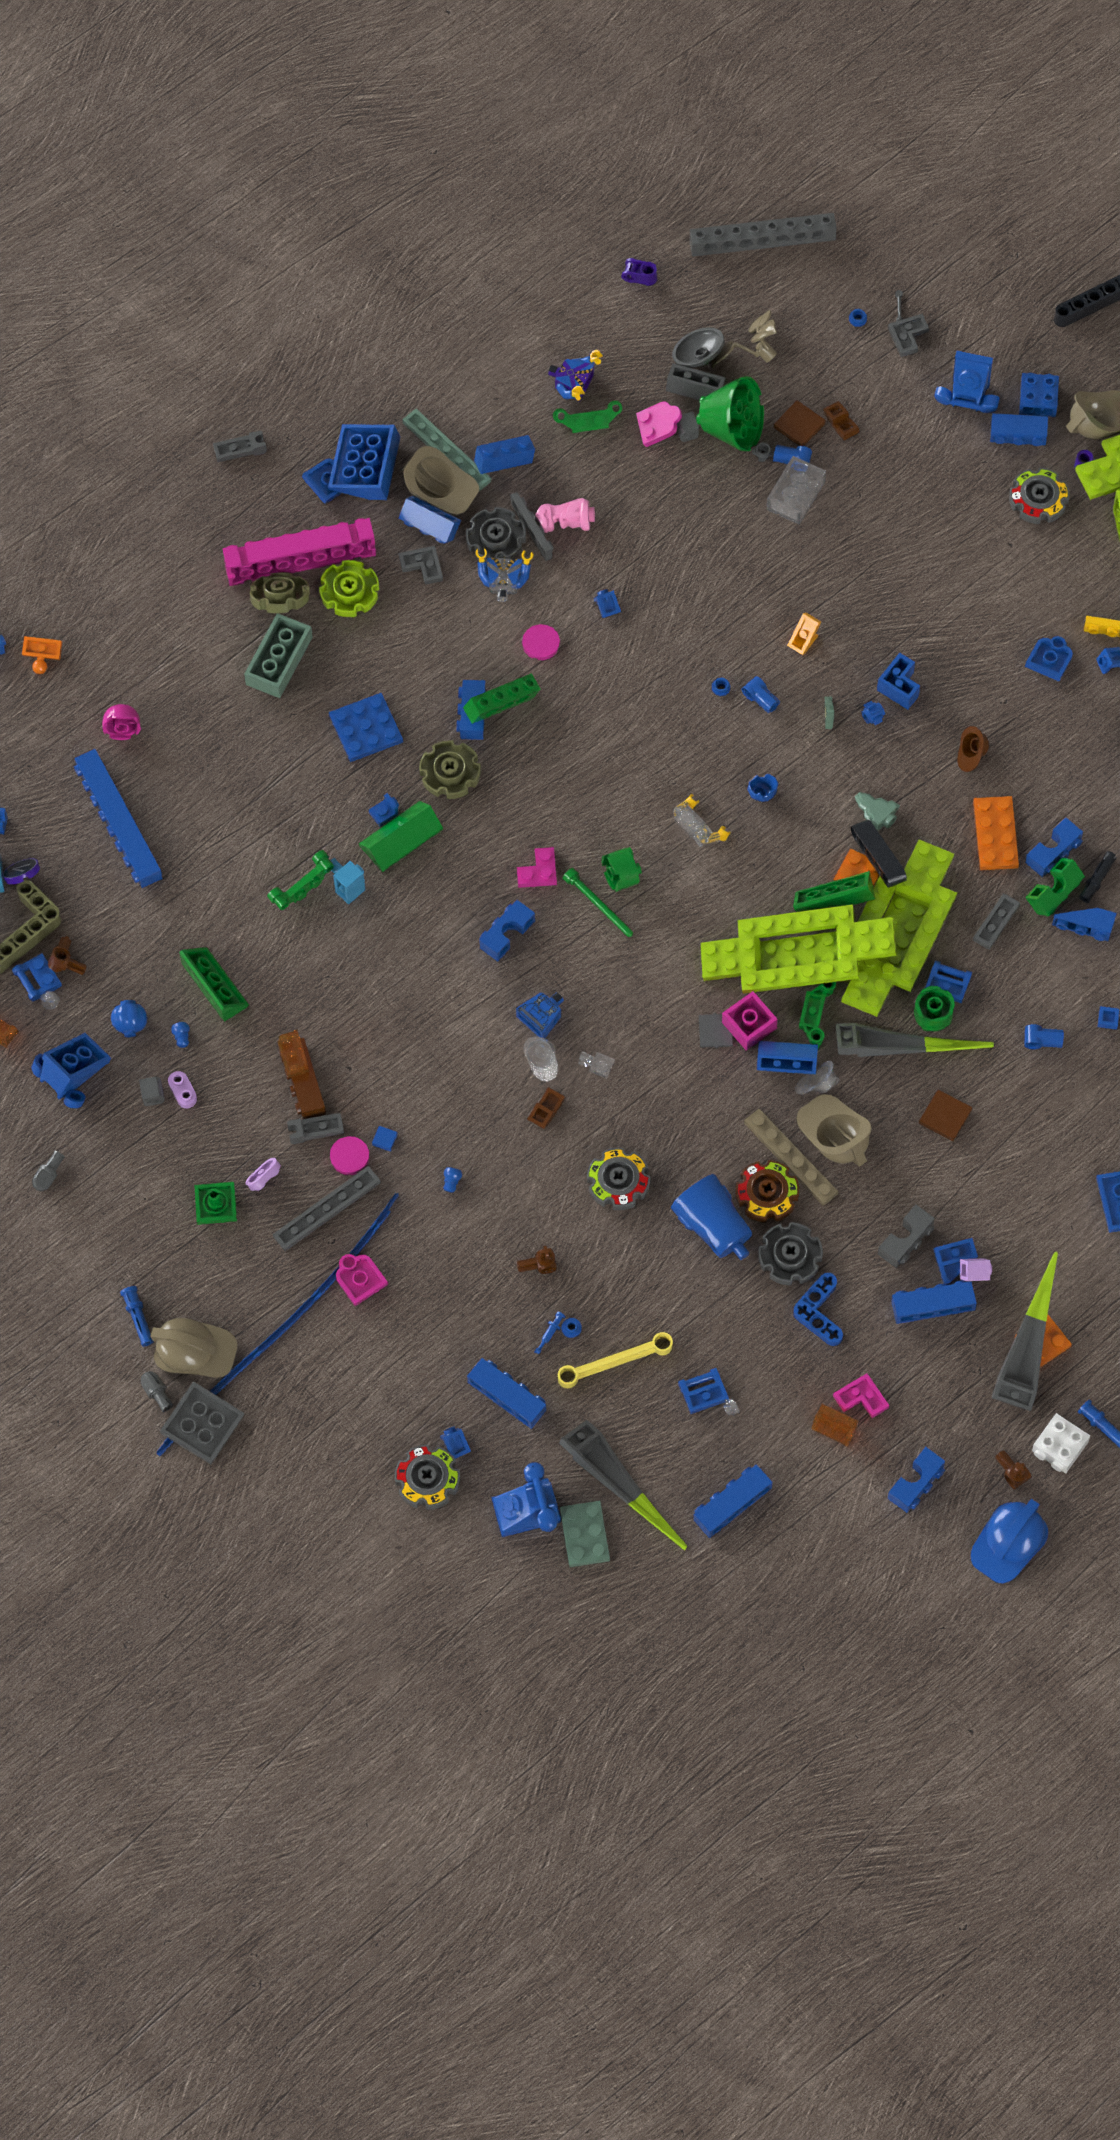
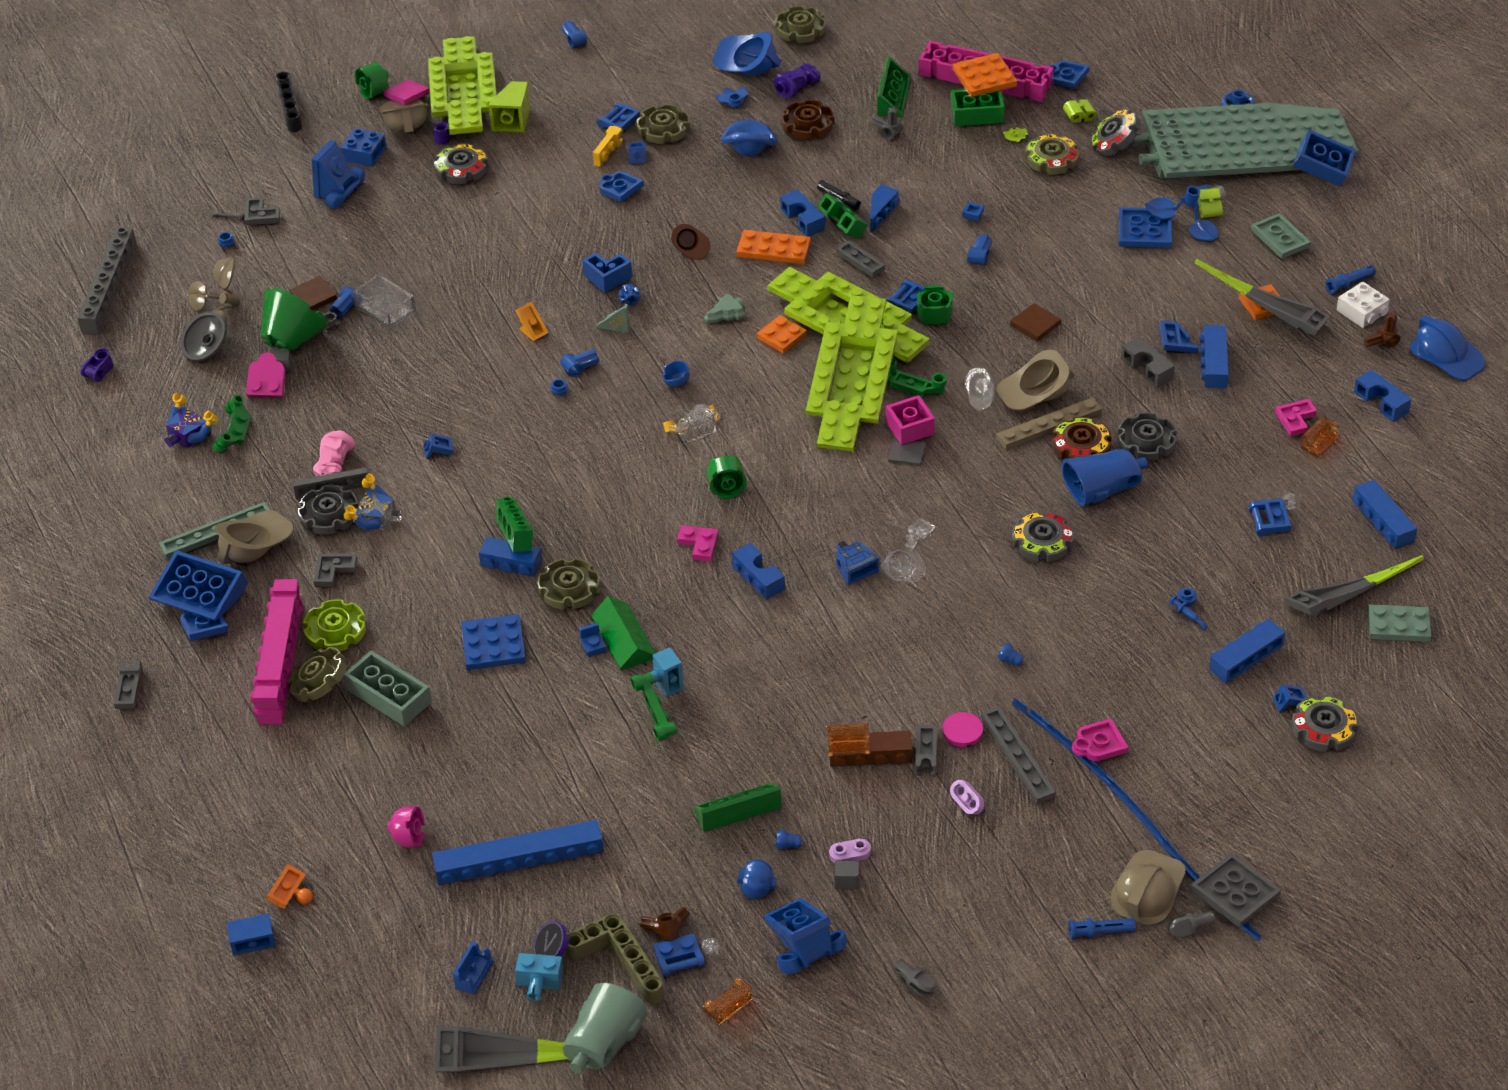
camera: 75 degrees left, 20 degrees down
(215, 1203) = (988, 842): green plate -> none
(384, 1138) = (951, 699): blue tile -> none
(429, 519) = (289, 551): brick -> none
(504, 454) = (246, 484): blue brick -> none
(528, 1505) = (1368, 649): blue piece -> none
(541, 642) = (457, 500): dark pink tile -> none
(543, 1262) = (1115, 601): reddish brown axle -> none
(546, 1108) = (952, 577): reddish brown slope -> none
(572, 877) = (717, 518): green piece -> none
(615, 1360) = (1226, 572): light yellow piece -> none
(692, 382) = (239, 346): dark grey brick -> none
(787, 1057) = (953, 403): blue brick -> none
(811, 1308) = (1202, 435): blue beam -> none
(837, 893) = (802, 343): green slope -> none
(840, 420) = (325, 269): reddish brown slope -> none
(871, 1041) = (956, 345): dark grey plate -> none
(878, 853) = (774, 307): black beam -> none
(975, 1269) = (1192, 323): lavender brick -> none
(1019, 429) = (391, 164): blue brick -> none

